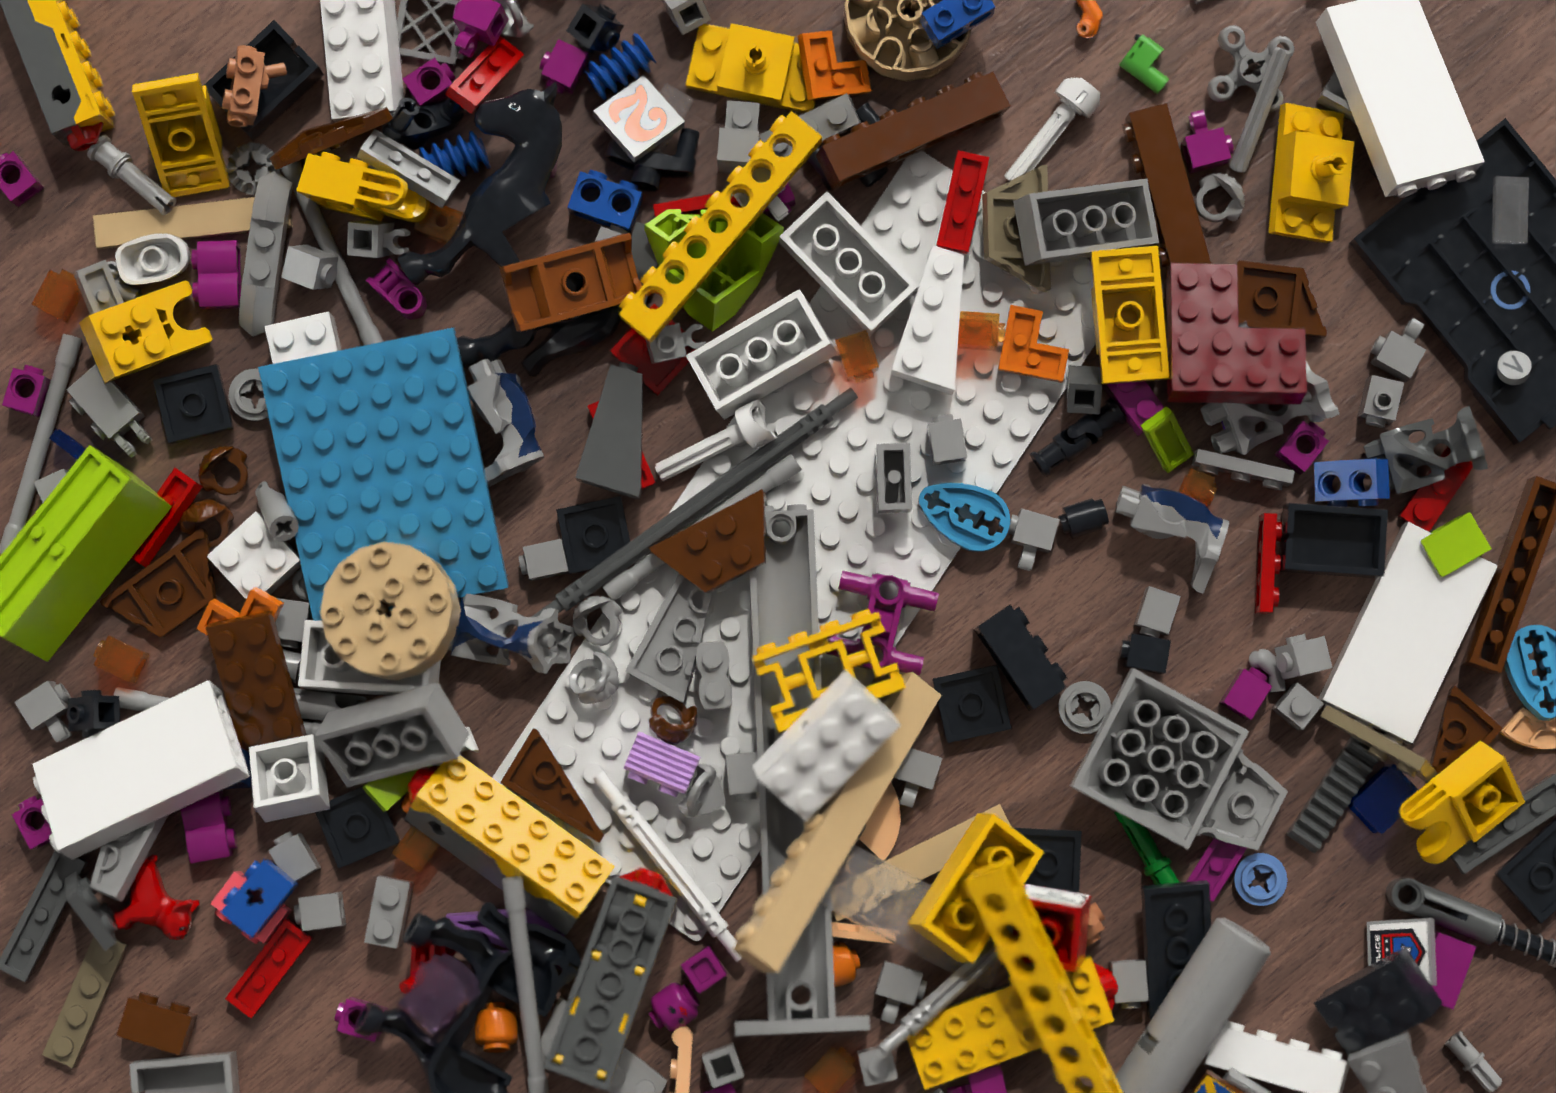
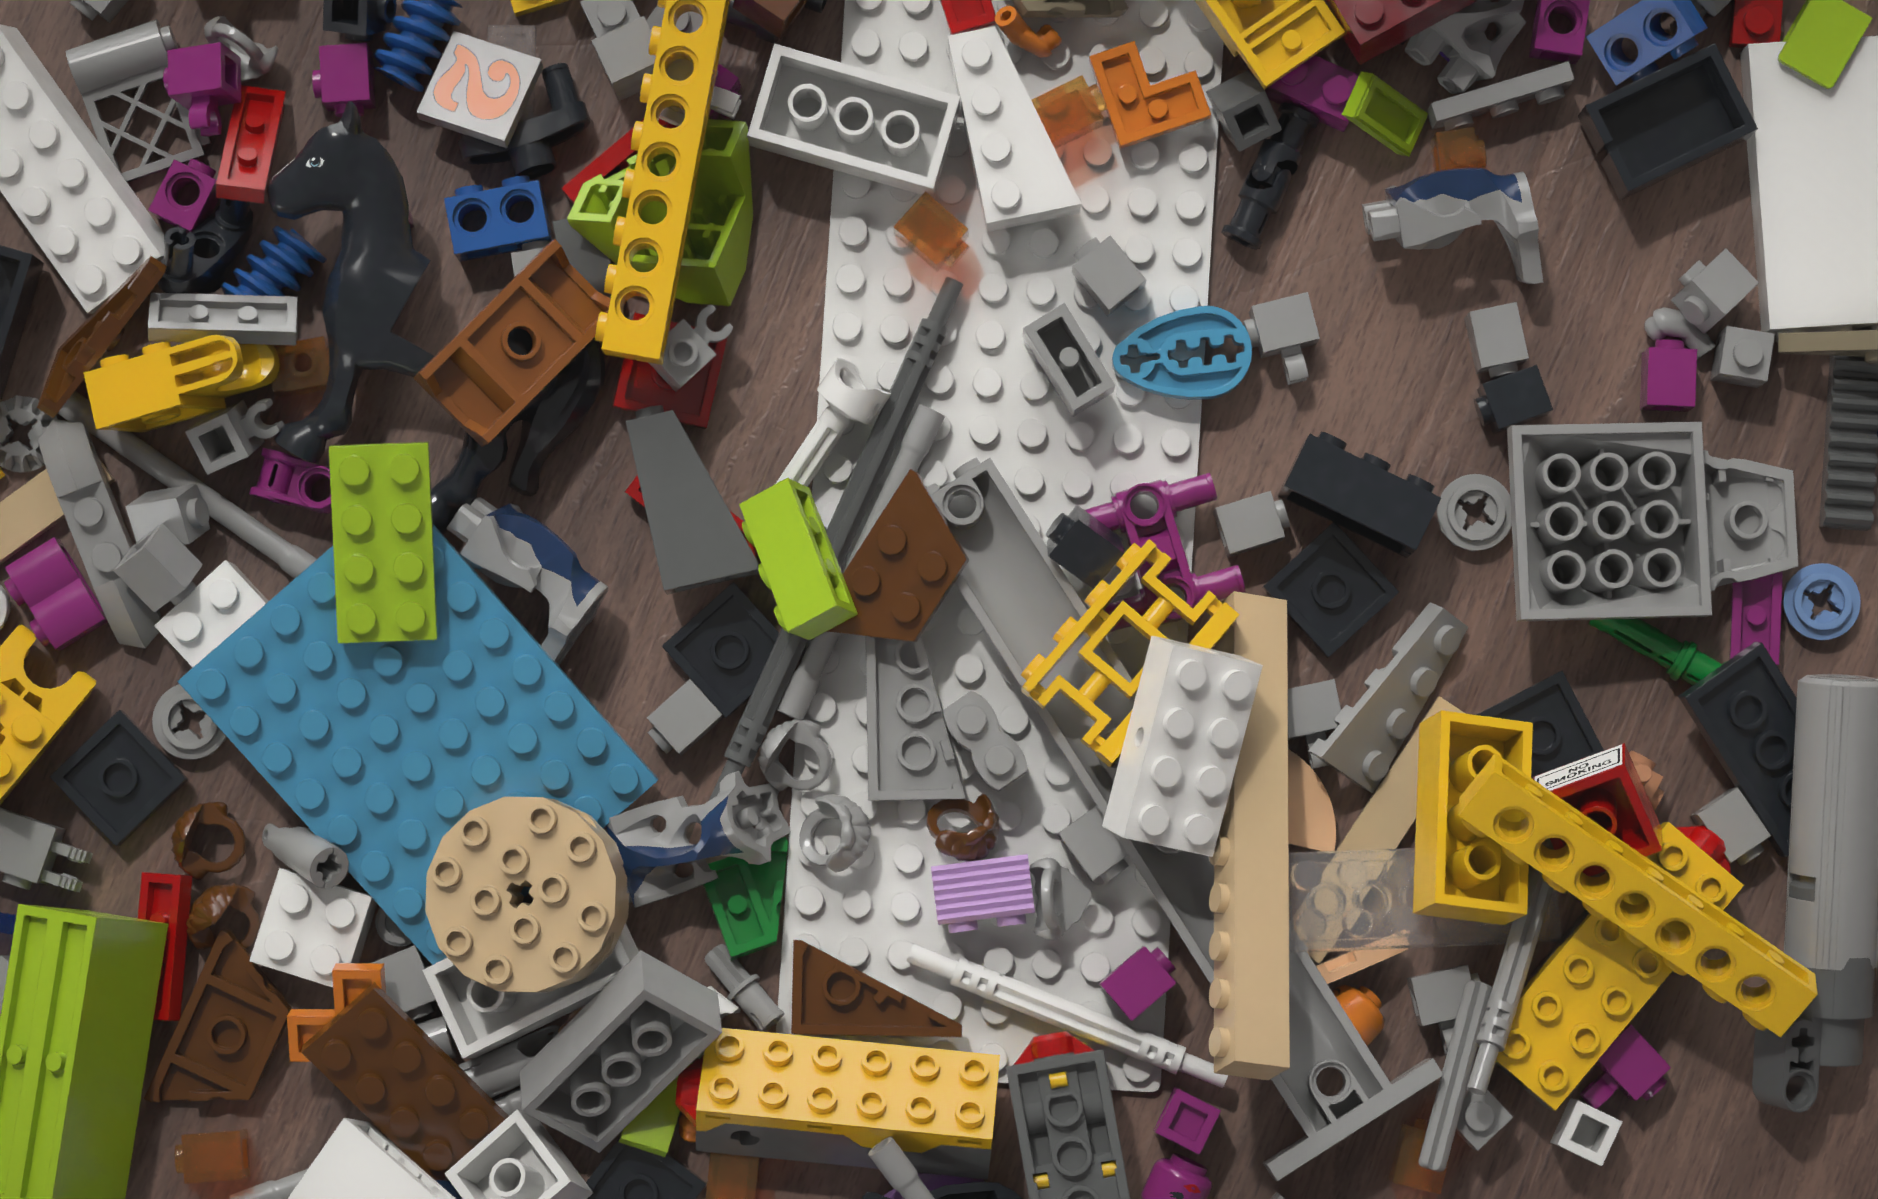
camera: 25 degrees left, 0 degrees up
(286, 294) = (159, 569): none -> light grey brick
(424, 354) = (383, 542): none -> lime plate
(488, 739) = (744, 989): none -> light grey axle
(521, 689) = (748, 900): none -> green wing
(664, 504) = (797, 559): none -> lime brick
(723, 870) = (1139, 981): none -> magenta brick
(761, 354) = (810, 298): white brick -> none
(838, 593) = (1084, 546): none -> black brick
(876, 1035) = (1455, 1078): none -> light grey axle
(947, 637) = (1251, 523): none -> light grey brick
(956, 798) = (1385, 714): none -> light grey wing
(978, 270) = (1023, 36): none -> orange arm
(1083, 517) = (1336, 273): black brick -> none
(1267, 563) = (1600, 198): red plate -> none

